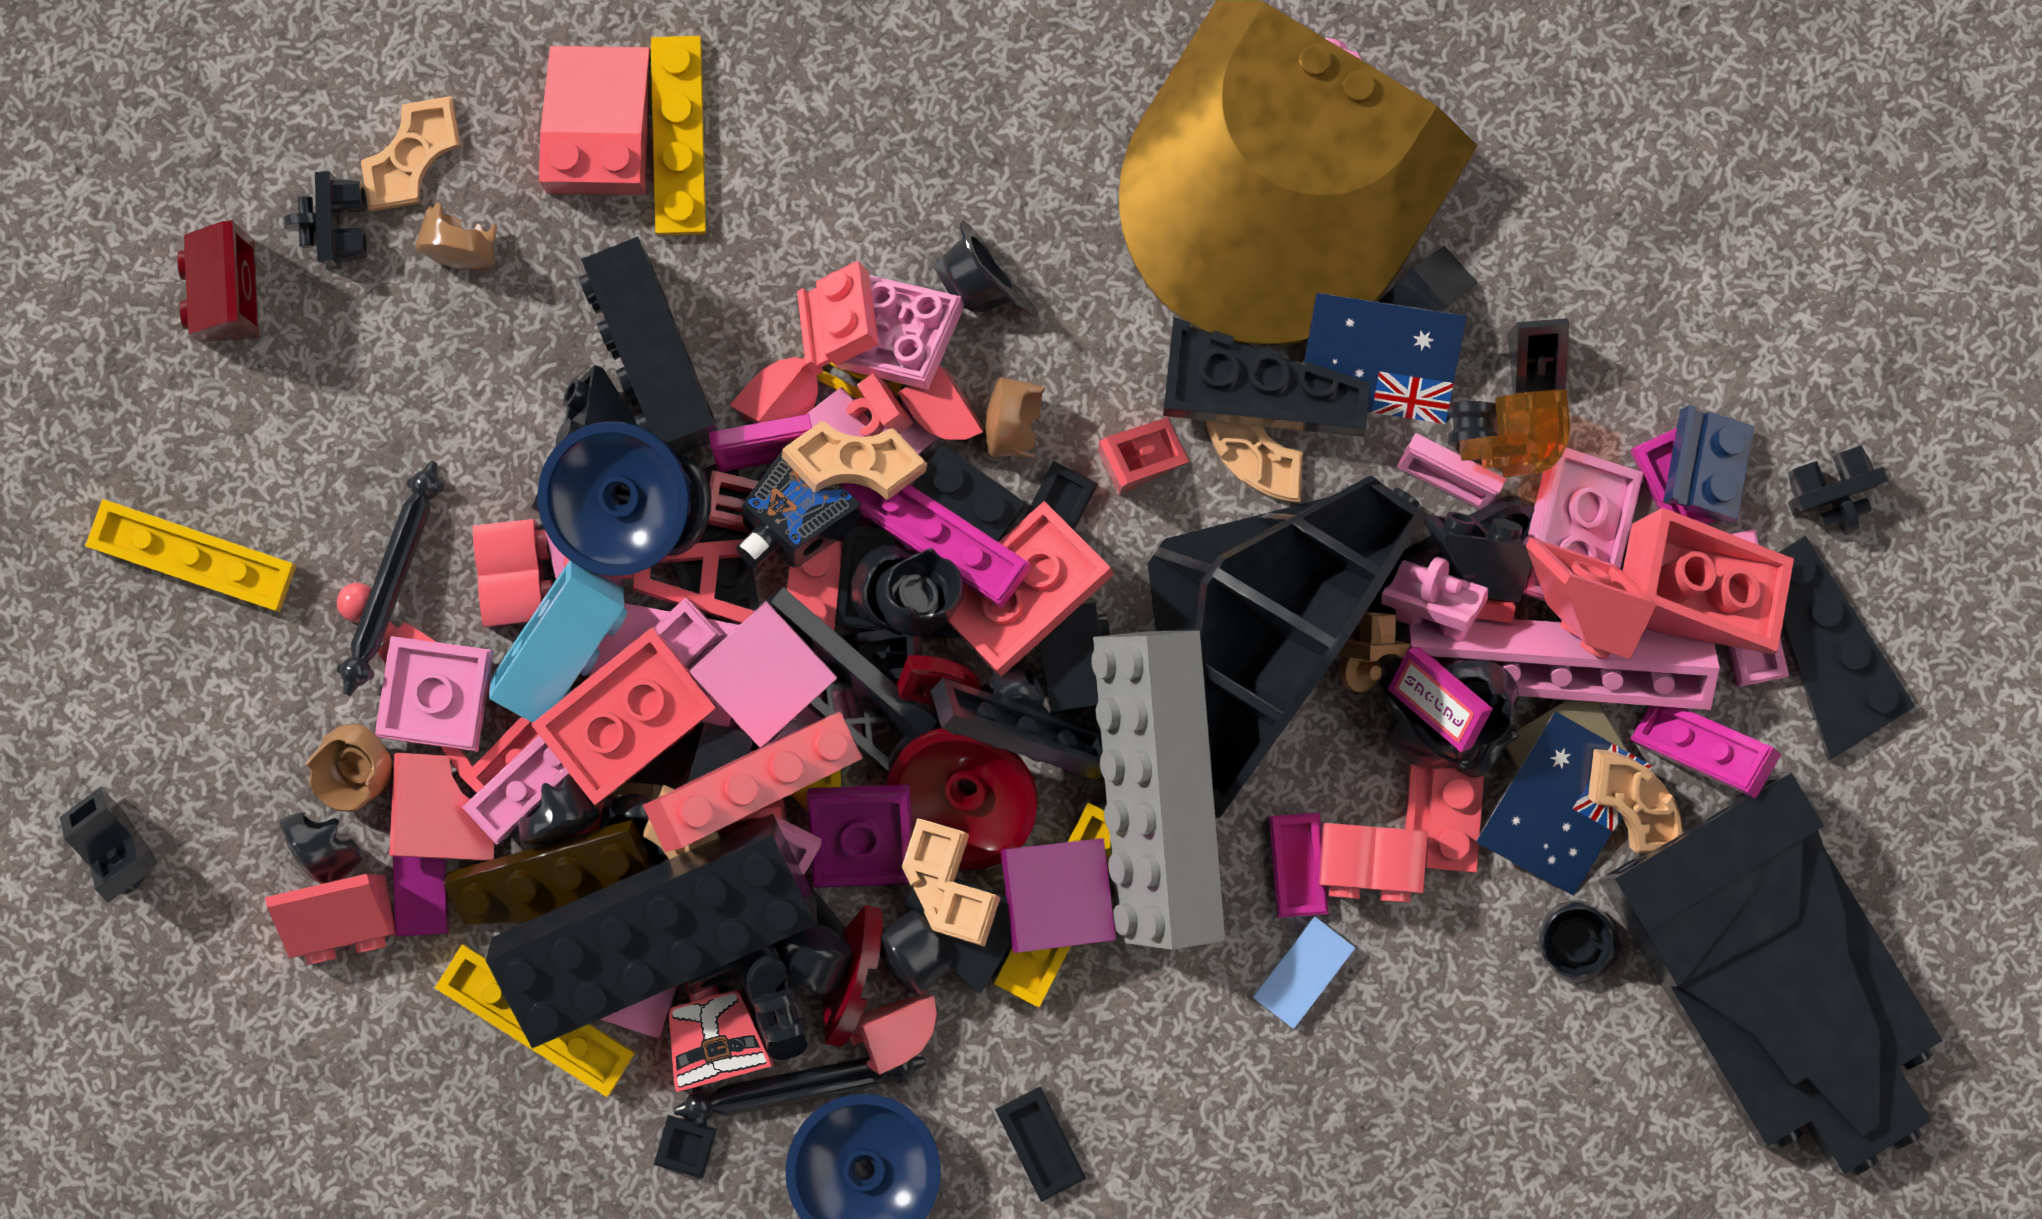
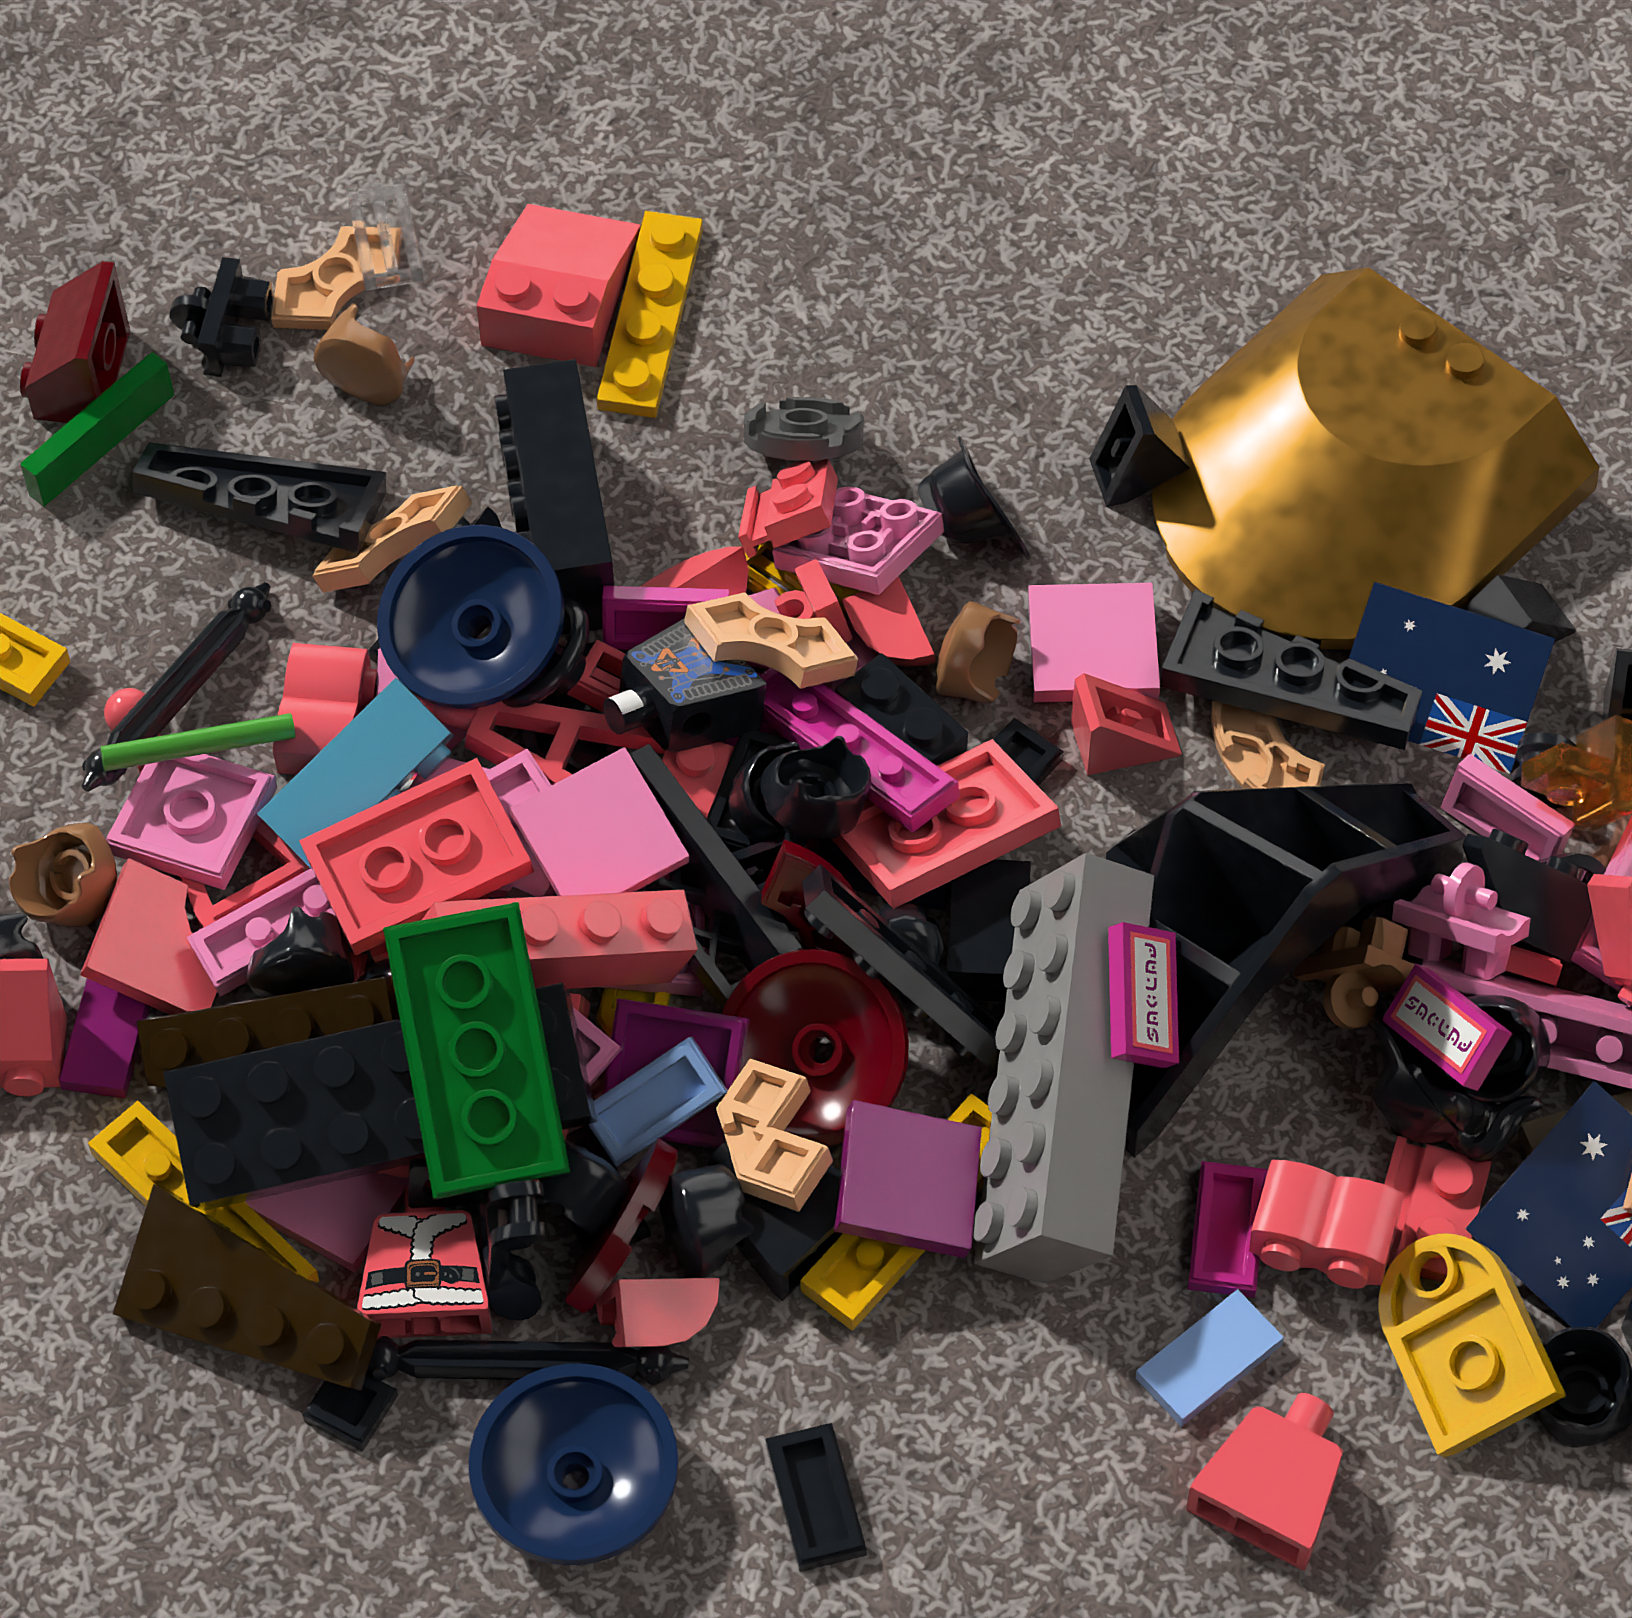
camera: 15 degrees right, 25 degrees down
(257, 350) = (97, 429): none -> green tile
(420, 383) = (278, 494): none -> black wing
(423, 73) = (378, 197): none -> clear tile
(424, 642) = (197, 742): none -> bright green bar
(541, 392) = (393, 537): none -> light nougat tile
(585, 1094) = (225, 1292): none -> dark brown wing
(721, 906) = (476, 1050): none -> green tile
(831, 234) = (804, 429): none -> dark grey tile
(854, 865) = (655, 1101): none -> light blue tile
(1102, 380) = (1092, 632): none -> bright pink tile
(1105, 199) = (1136, 449): none -> black slope
(1210, 737) = (1143, 995): none -> tile
(1369, 1064) = (1272, 1480): none -> coral torso
(1490, 931) = (1465, 1345): none -> yellow tile

